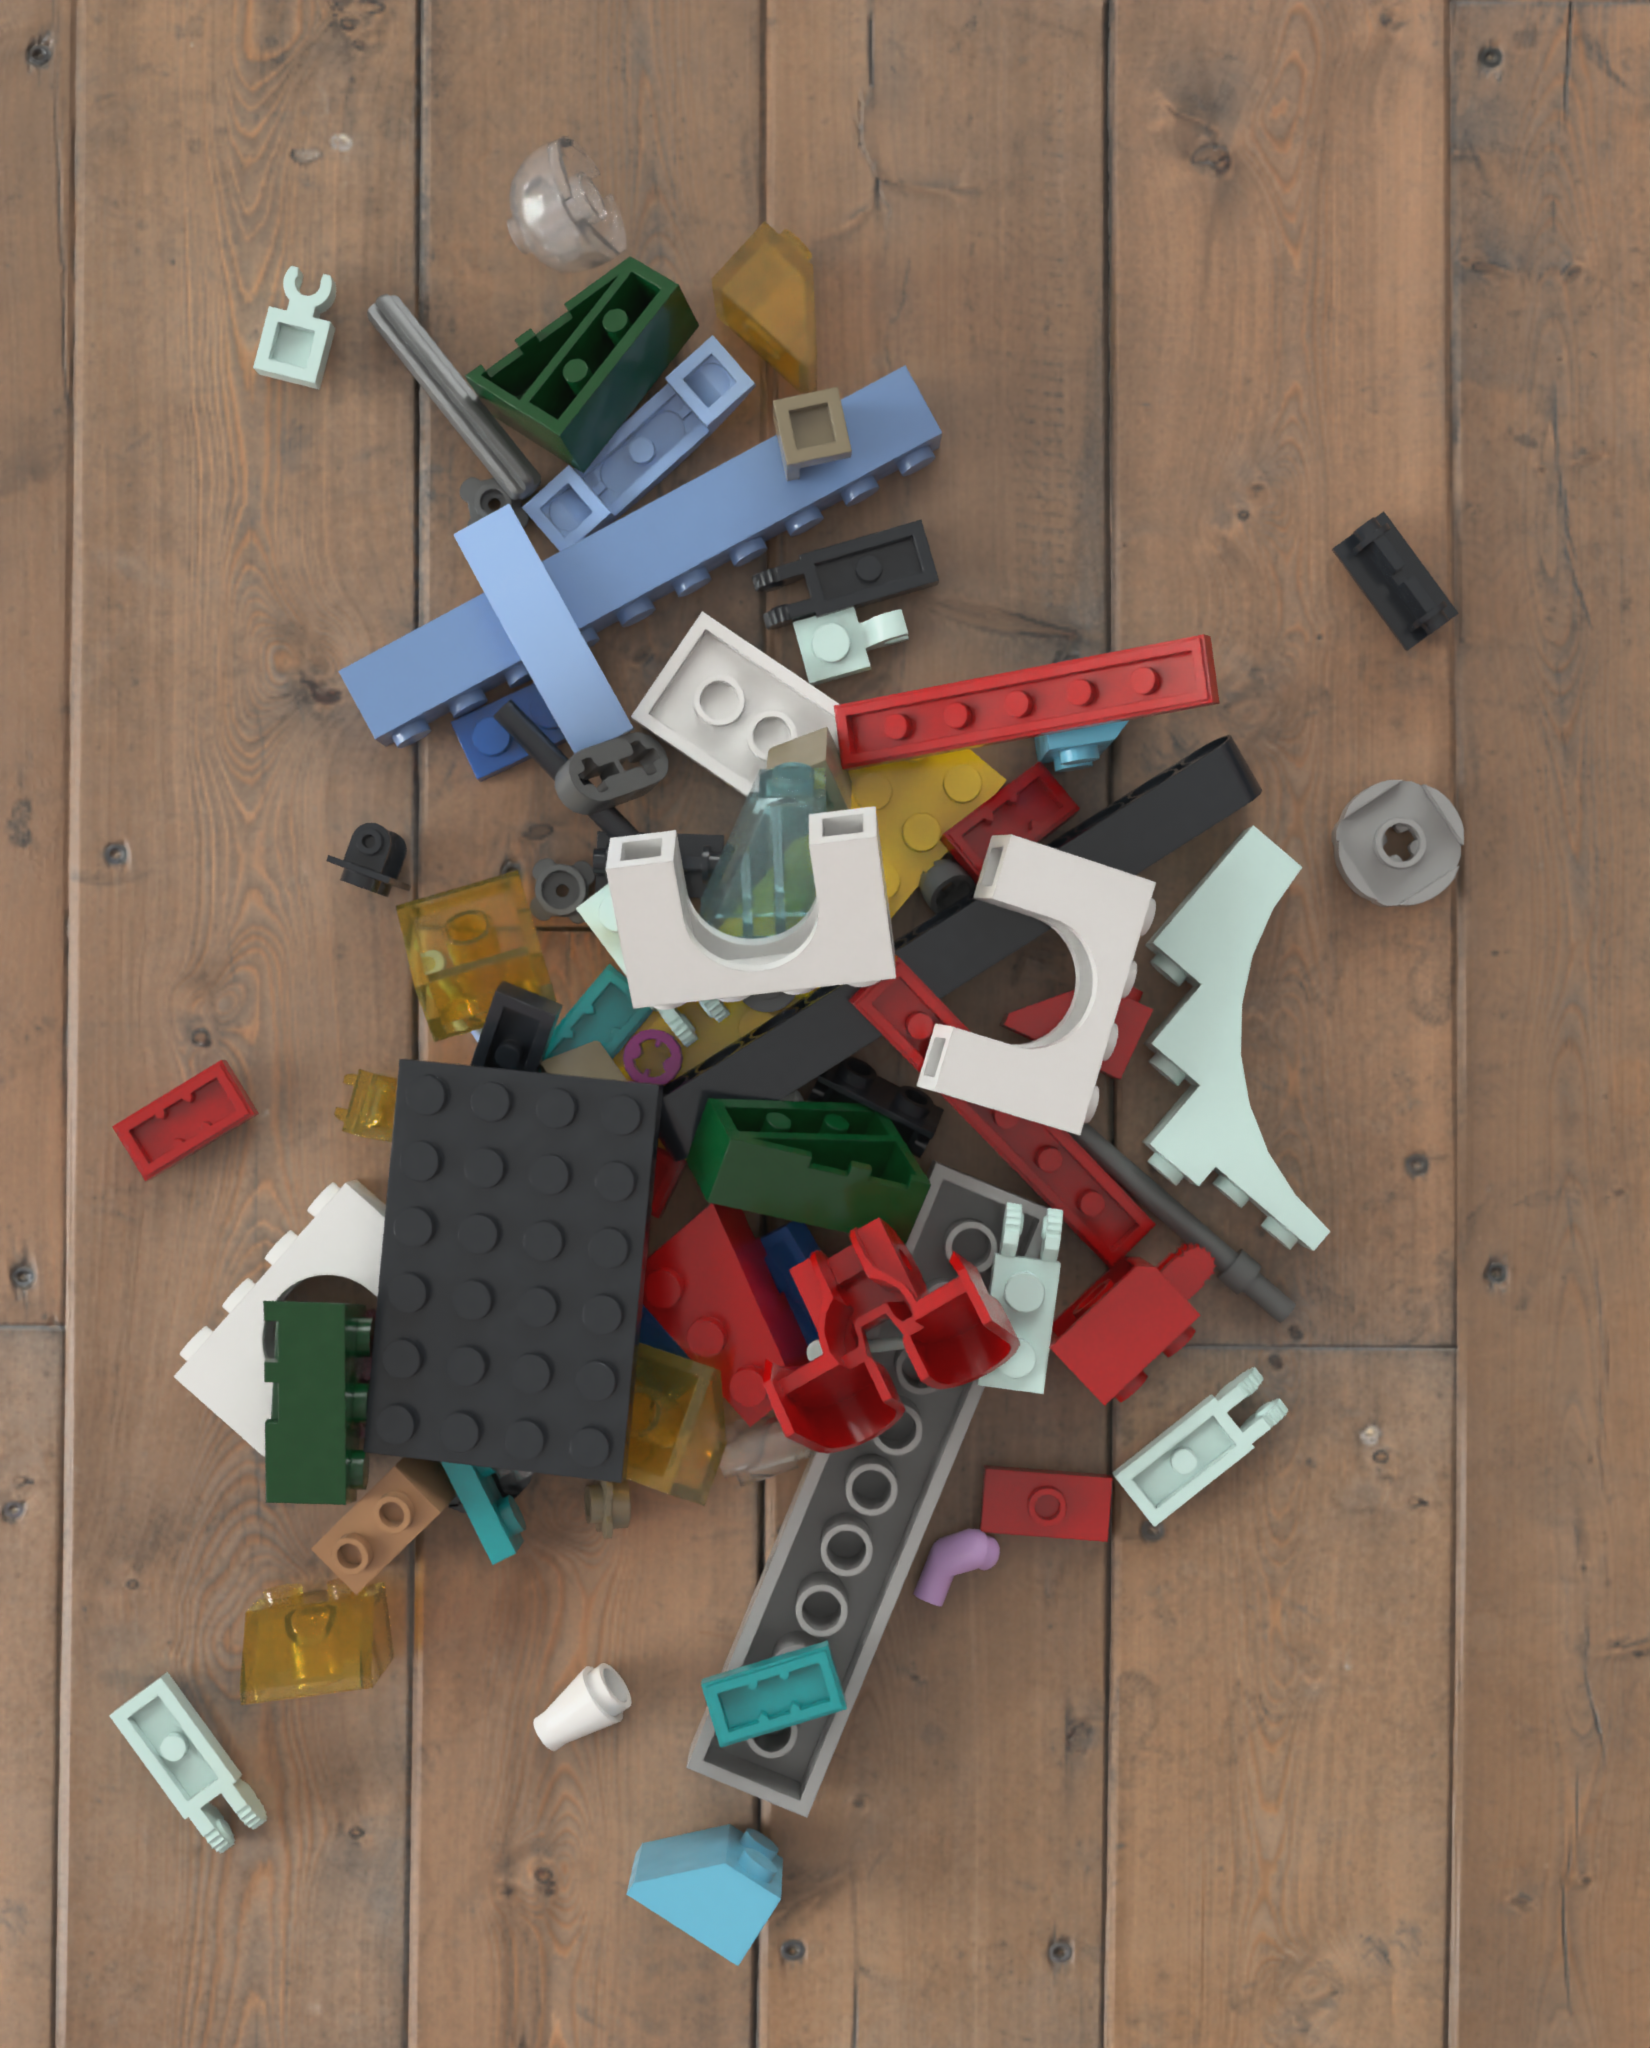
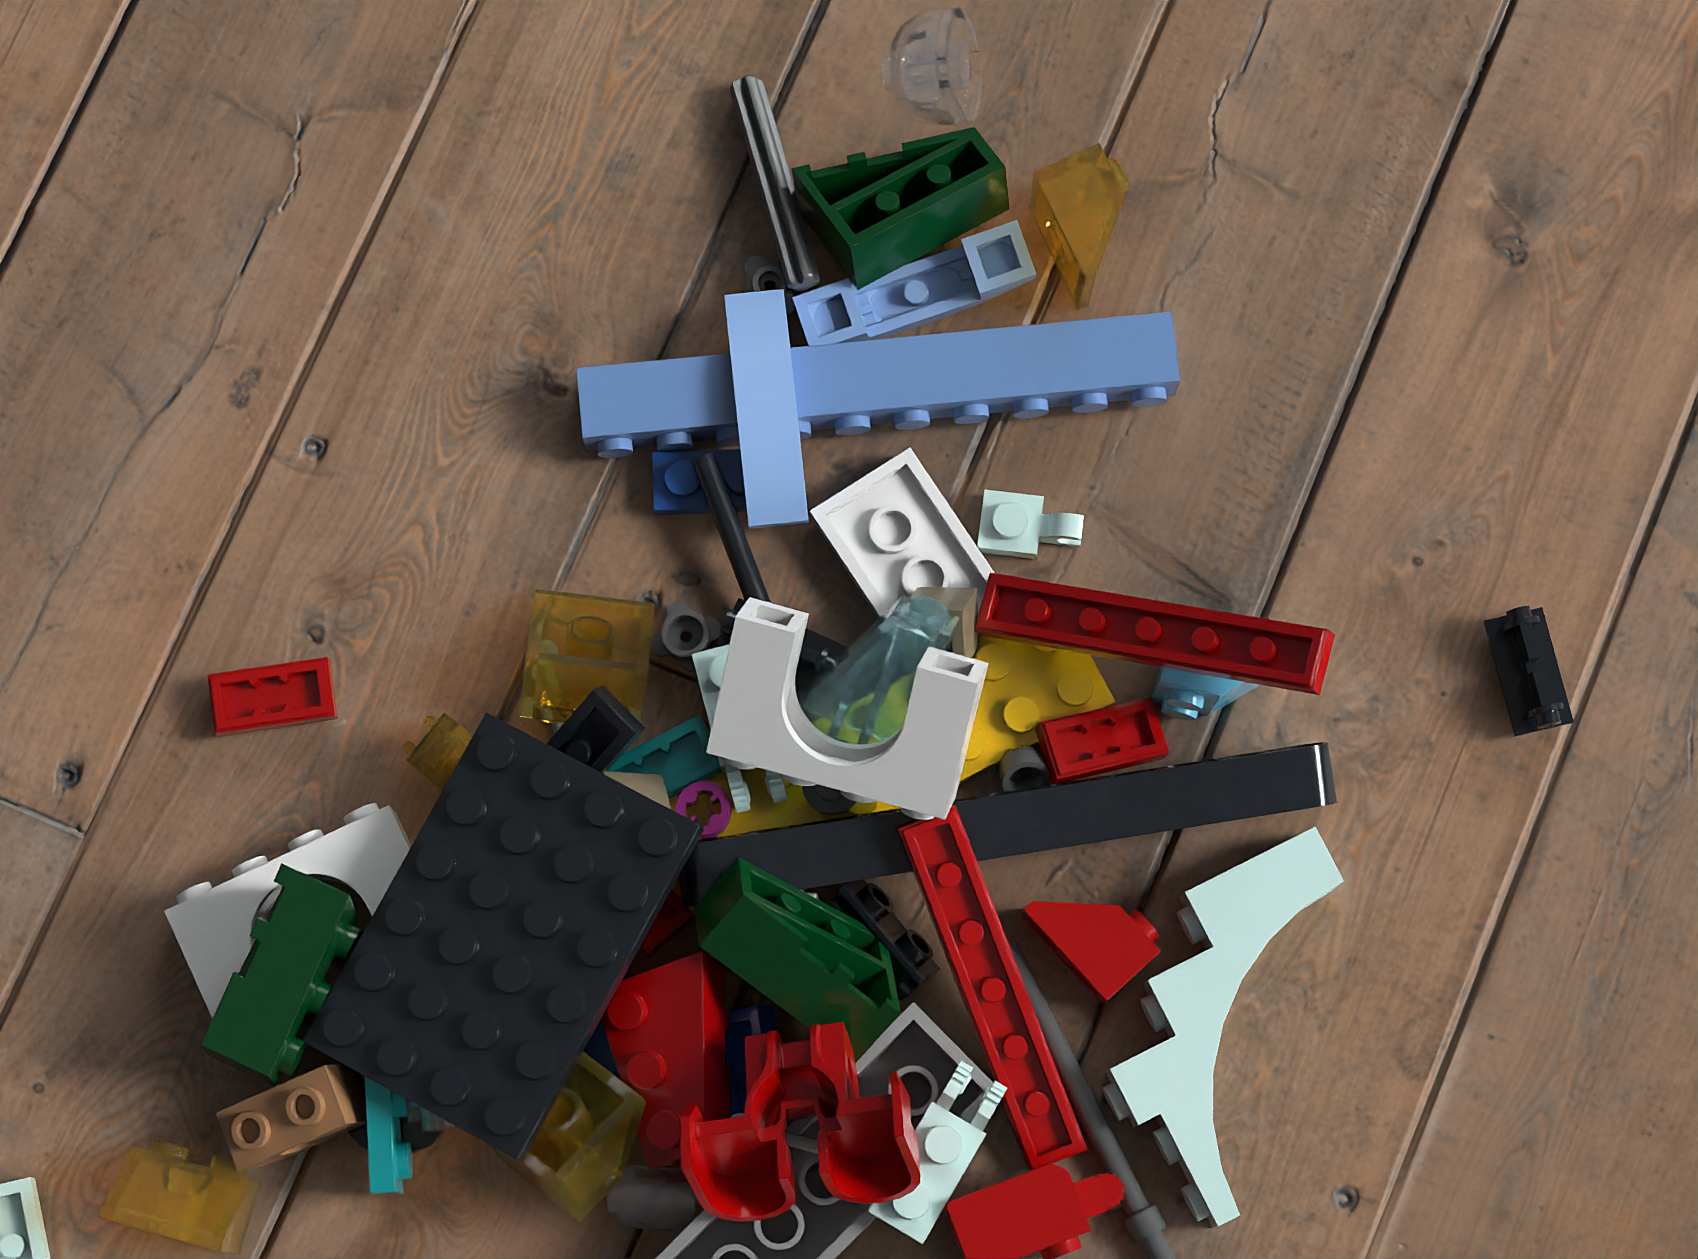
camera: 20 degrees right, 10 degrees down
(295, 339) = (661, 82): light aqua plate -> none
(373, 859) = (535, 539): black hinge -> none
(607, 1506) = (492, 1190): dark tan plate -> none
(617, 784) = (772, 539): dark grey beam -> none
(810, 430) = (1066, 330): dark tan panel -> none
(853, 574) = (1053, 470): black hinge -> none
(1100, 920) = (1144, 847): white arch -> none
(1434, 851) = (1460, 872): light grey plate -> none

